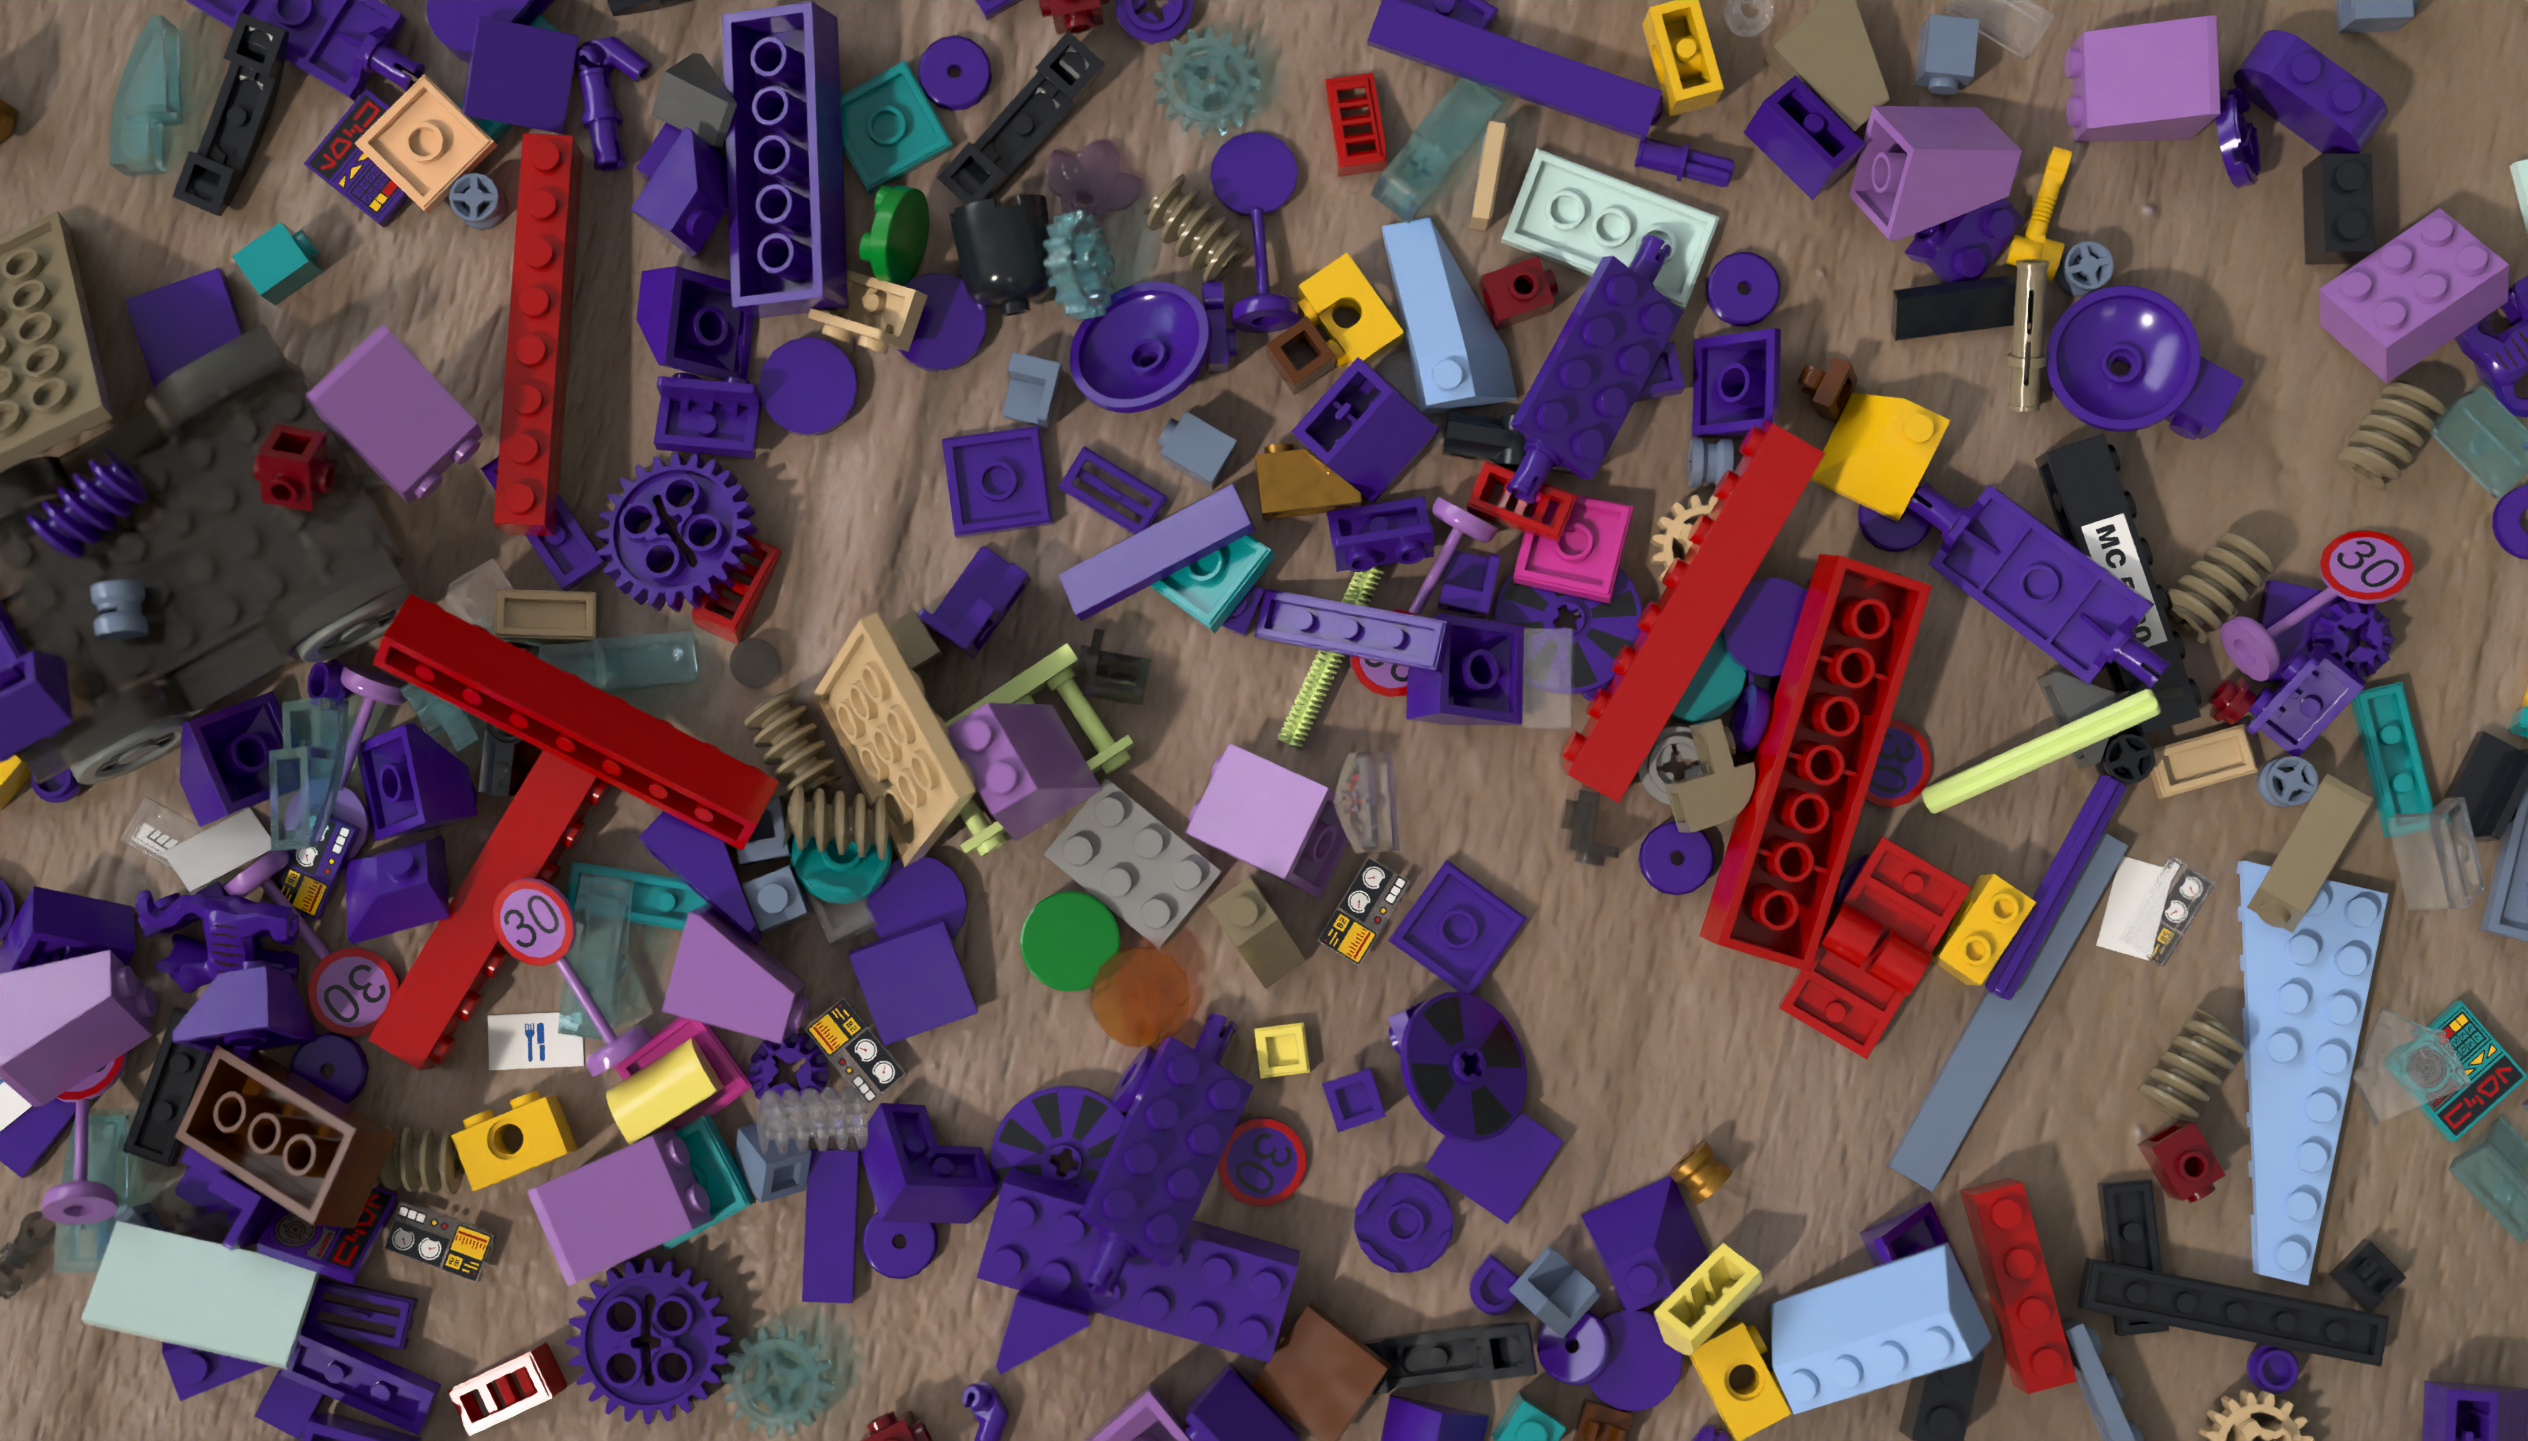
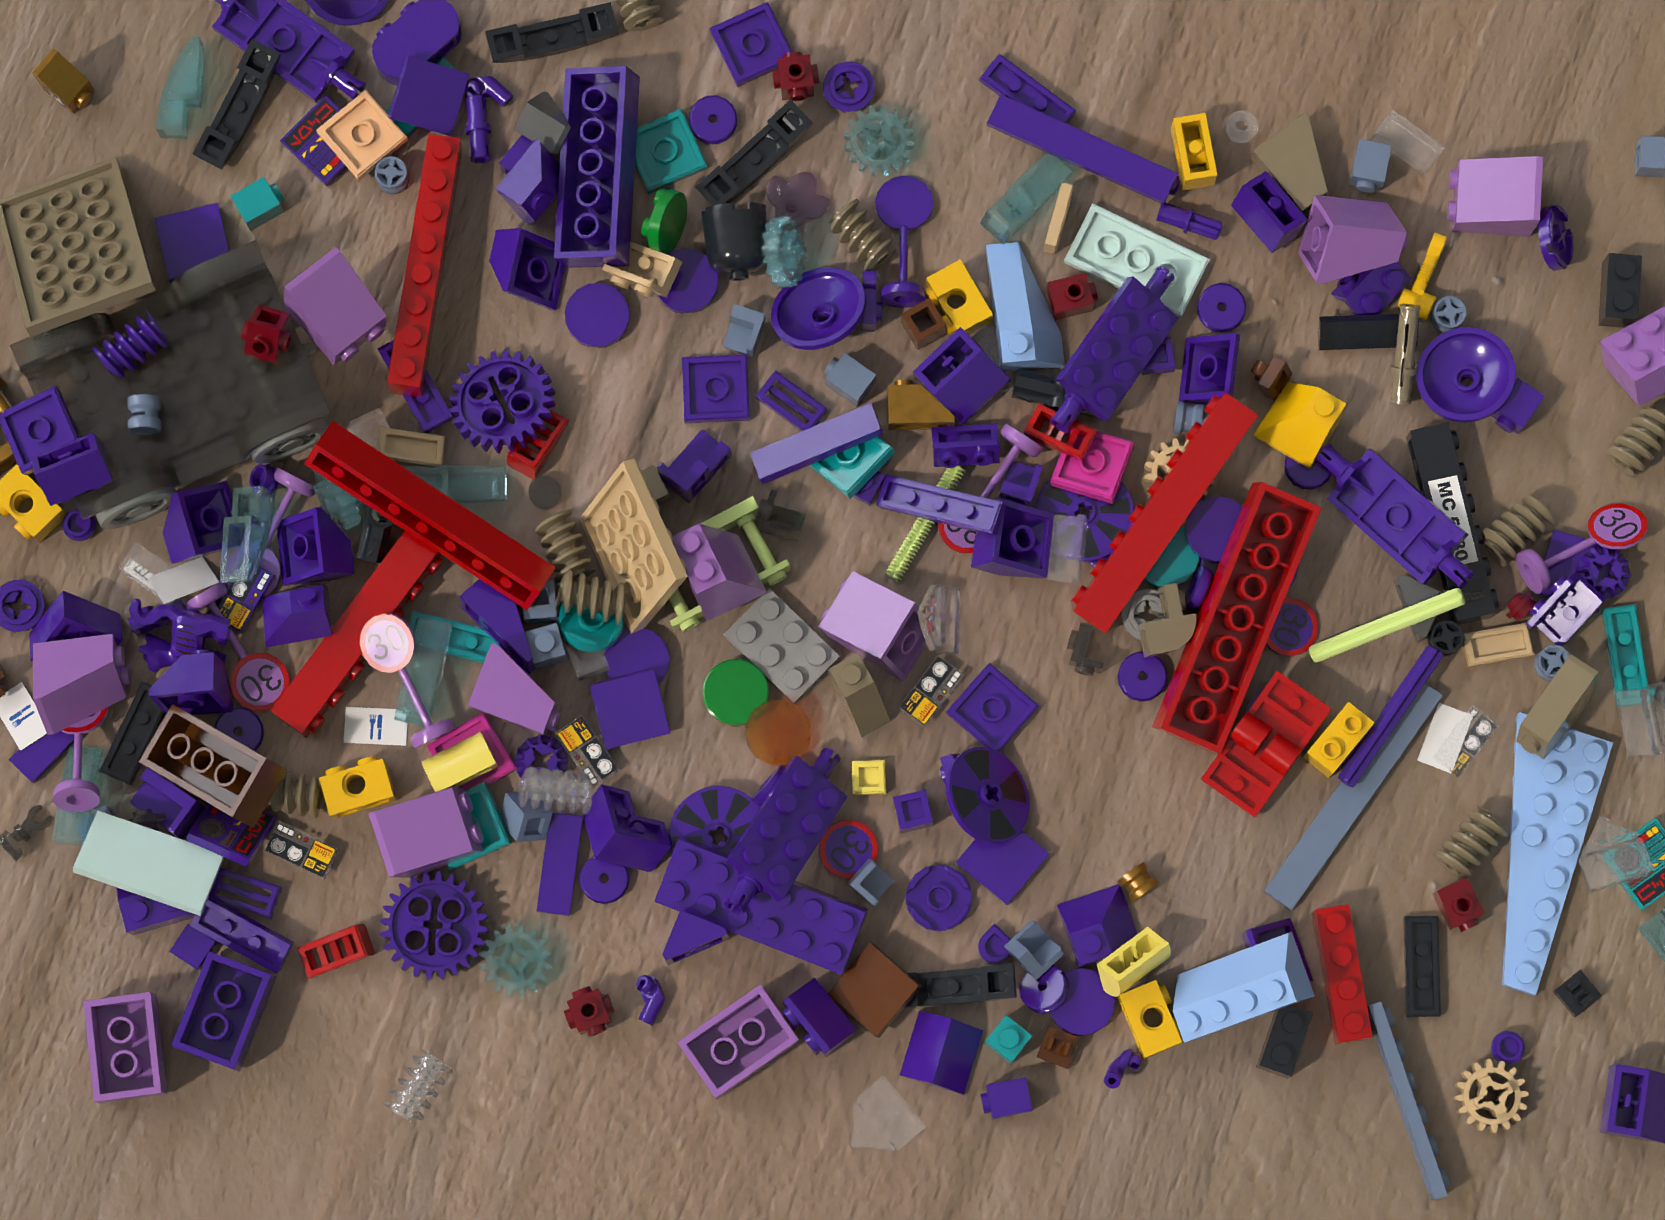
camera: 10 degrees right, 5 degrees down
(708, 416) = (530, 328): dark purple bracket -> none
(1298, 1212) = (870, 882): none -> sand blue panel
(1362, 161) = (972, 202): red slope -> none
(2233, 1312) = (1483, 1006): black tile -> none
(2310, 94) = (1607, 213): dark purple brick -> none

